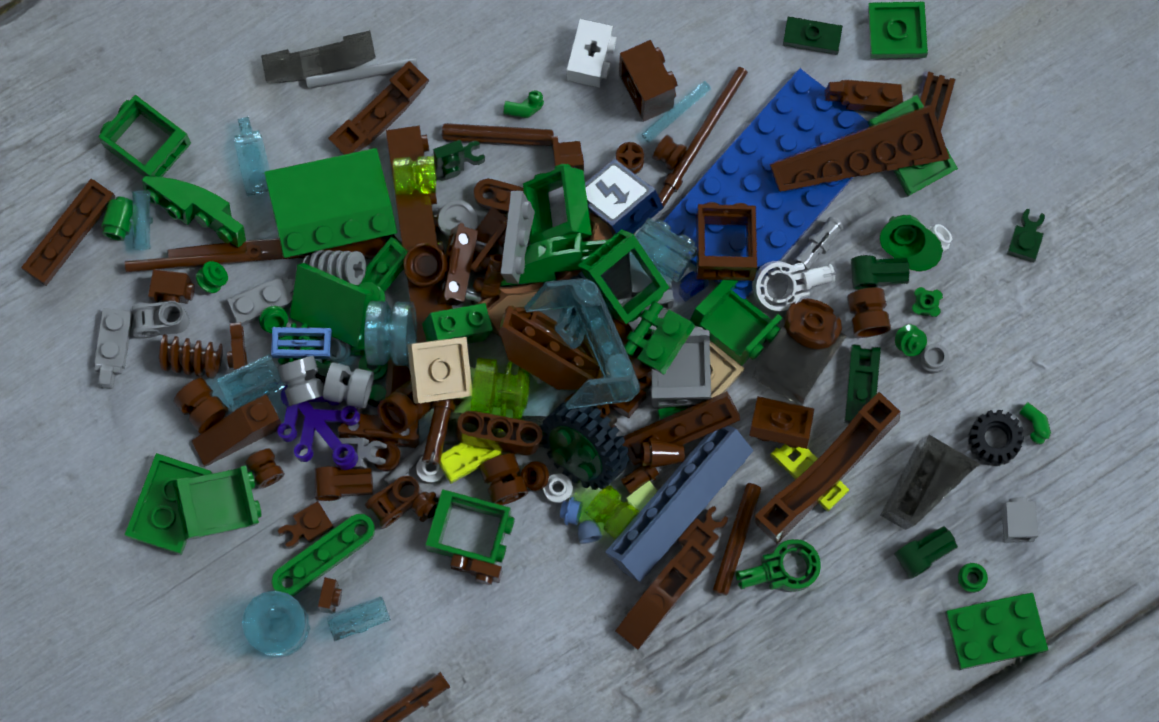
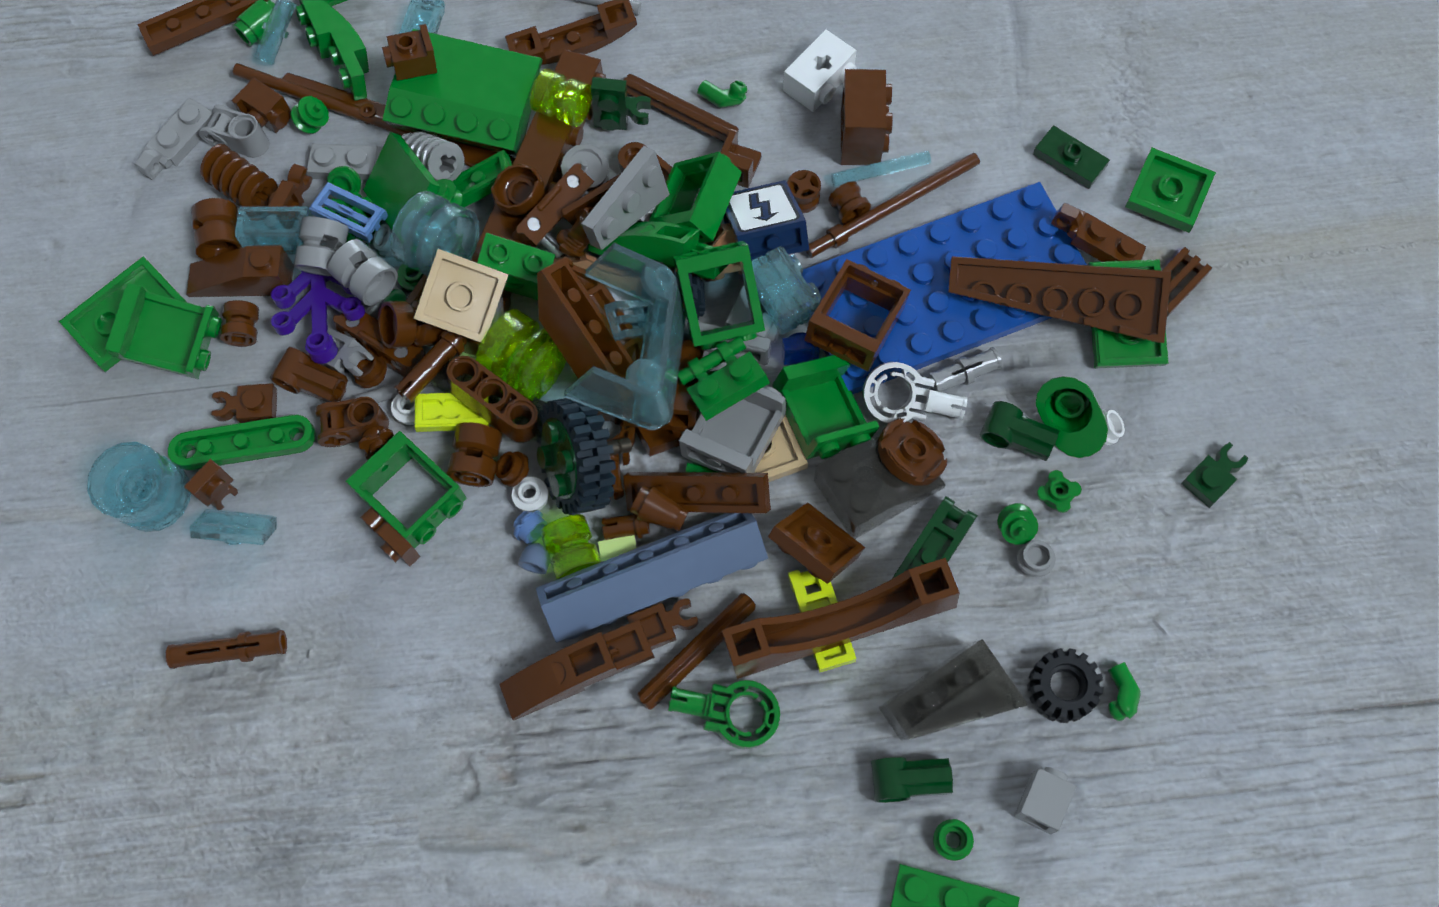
camera: 30 degrees right, 5 degrees down
(283, 205) = (410, 54): none -> reddish brown brick
(868, 310) = (983, 469): reddish brown wheel -> none

